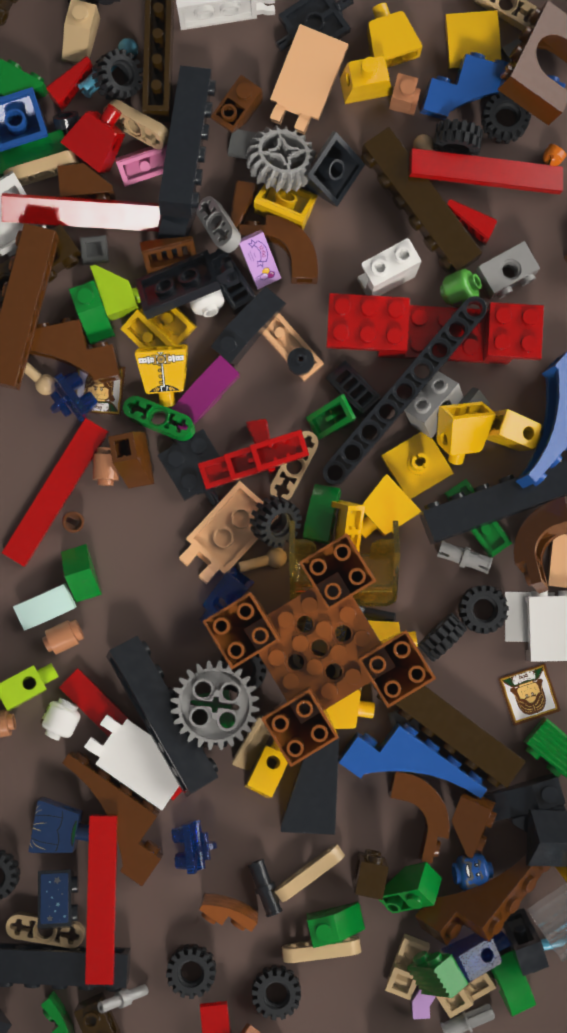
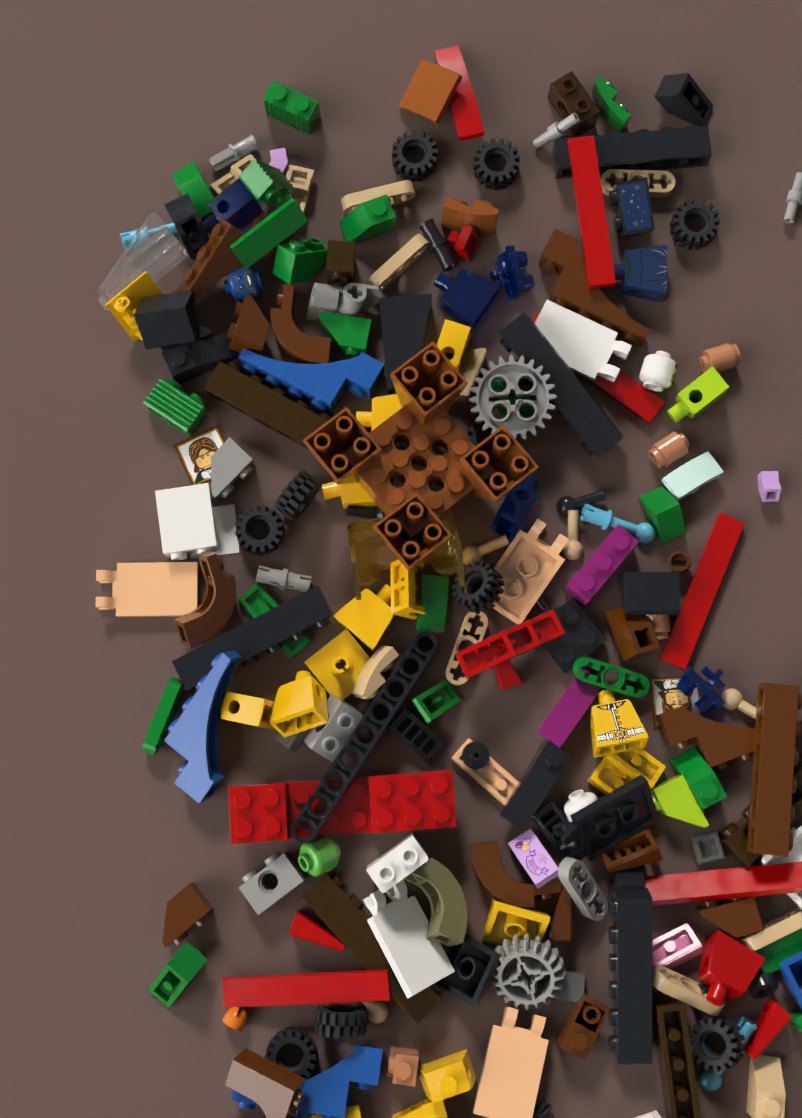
camera: 175 degrees right, 5 degrees down
(103, 557) = (643, 532): none -> medium azure pin
(108, 493) = (650, 593): none -> black slope
(150, 527) = (600, 565): none -> magenta arch
(172, 595) = (569, 503): none -> black bar
(173, 550) = (573, 548): none -> tan bar
(237, 886) = (464, 242): none -> red tile
(244, 826) = (466, 296): none -> clear blue torso
(346, 229) = (446, 900): none -> olive arch
(369, 836) = (345, 300): none -> light grey panel
(370, 802) = (347, 332): none -> green slope
(387, 199) = (402, 937): none -> white tile
(394, 444) = (370, 678): none -> tan slope
(442, 917) = (269, 233): none -> green tile
(508, 678) = (227, 467): none -> light grey slope

